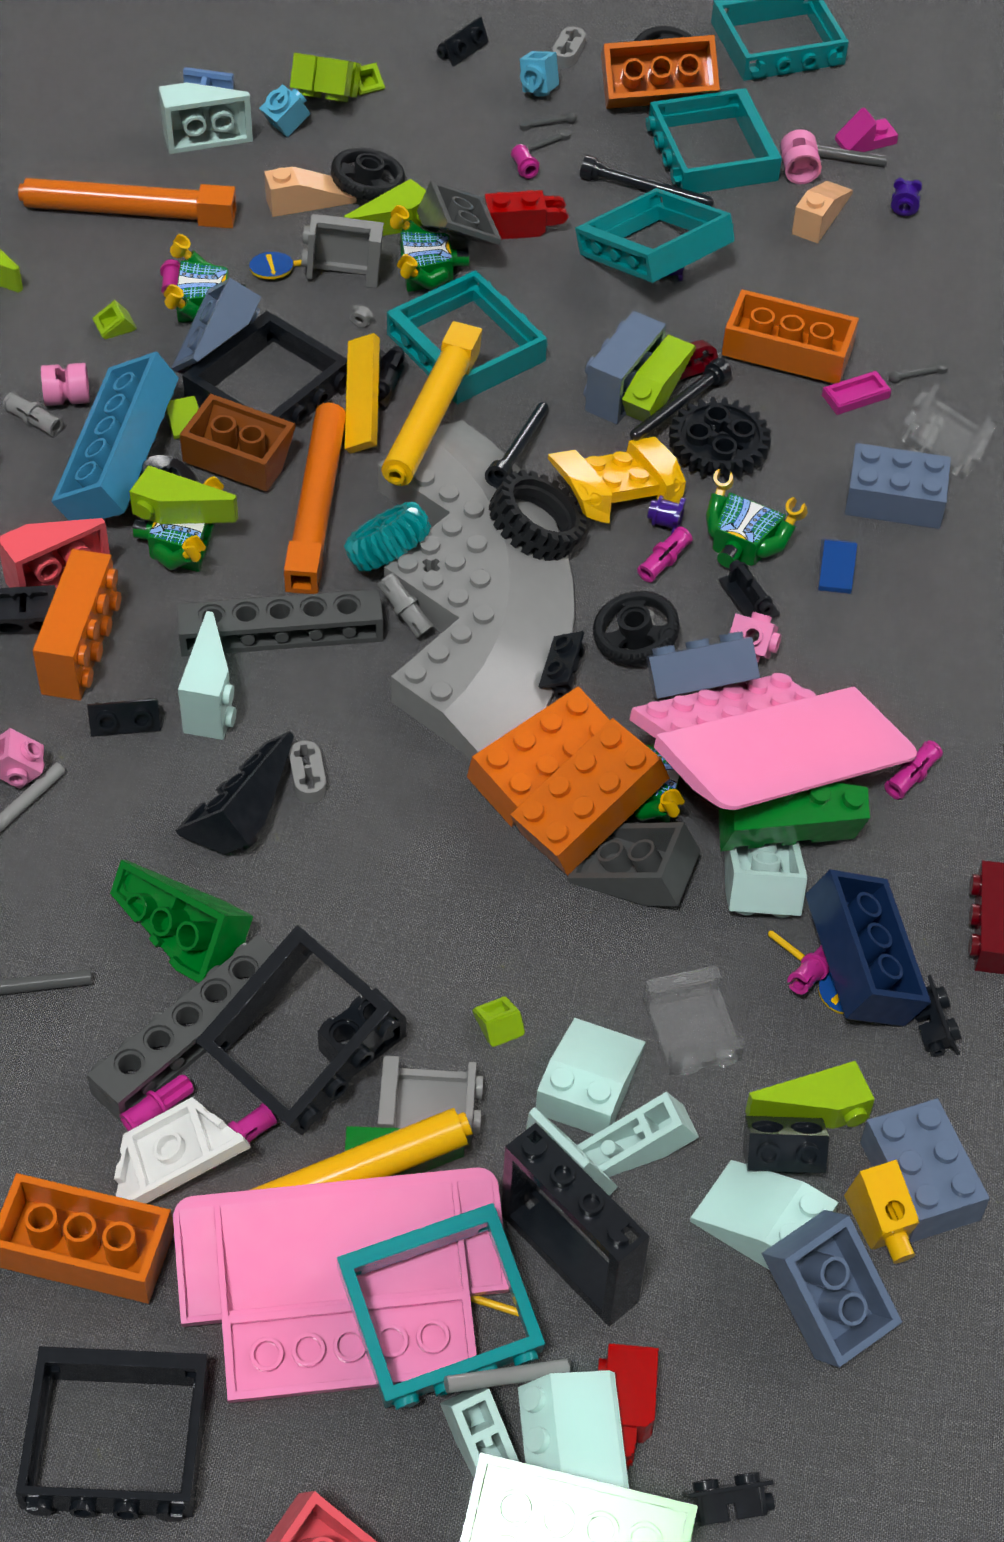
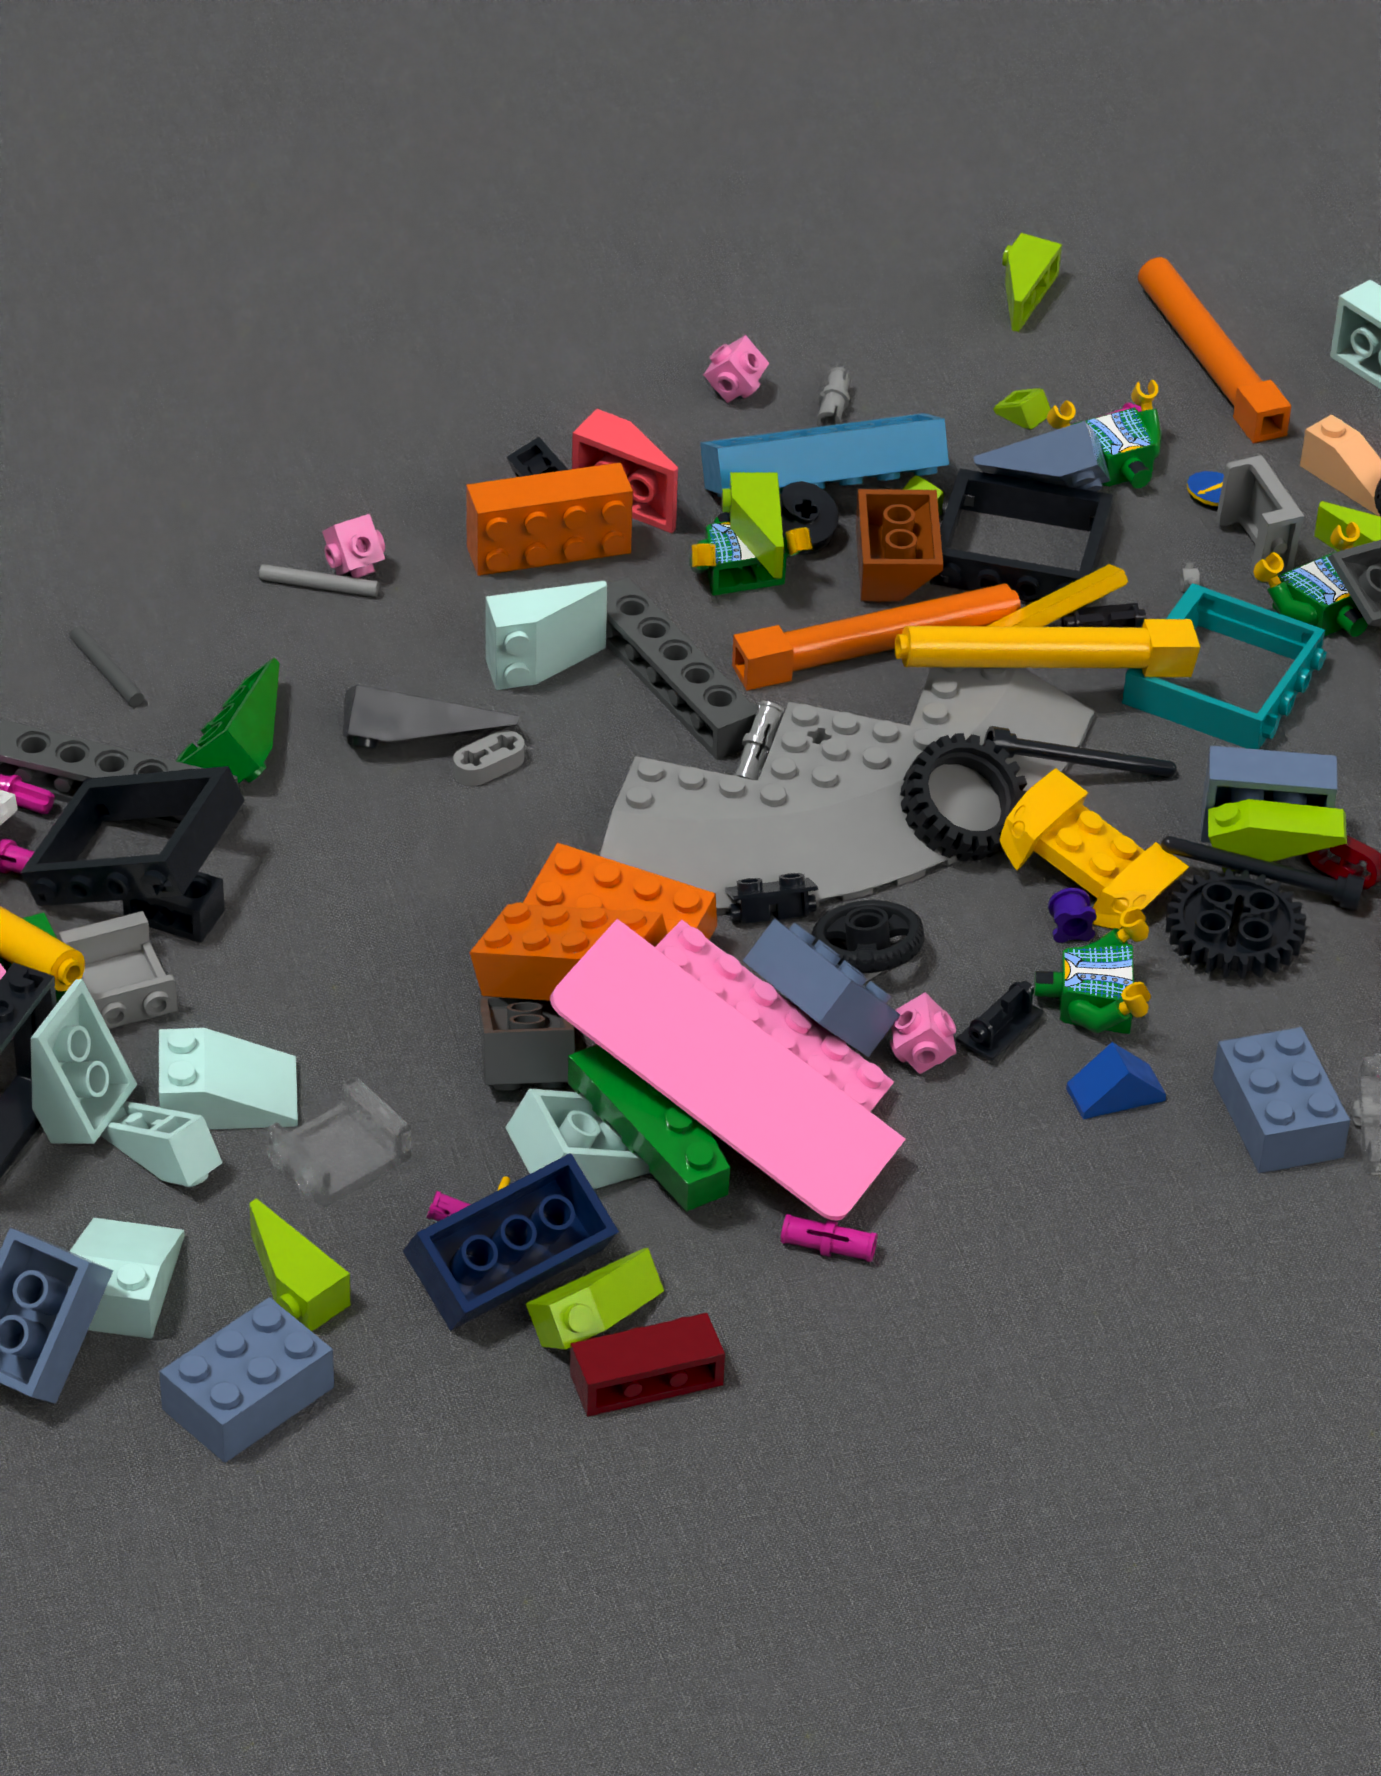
camera: 65 degrees right, 10 degrees down
(65, 384) = (884, 395): bright pink wheel -> none
(124, 717) = (463, 602): black hinge -> none
(387, 536) = (836, 689): teal gear -> none
(499, 1021) = (256, 1001): lime slope -> none
(653, 566) = (1008, 933): dark pink pin -> none
(785, 1144) = (212, 1251): black brick -> none
(884, 1209) = (160, 1340): yellow torso -> none
(938, 934) = (595, 1300): none -> lime slope
(940, 1031) = (471, 1349): black hinge -> none

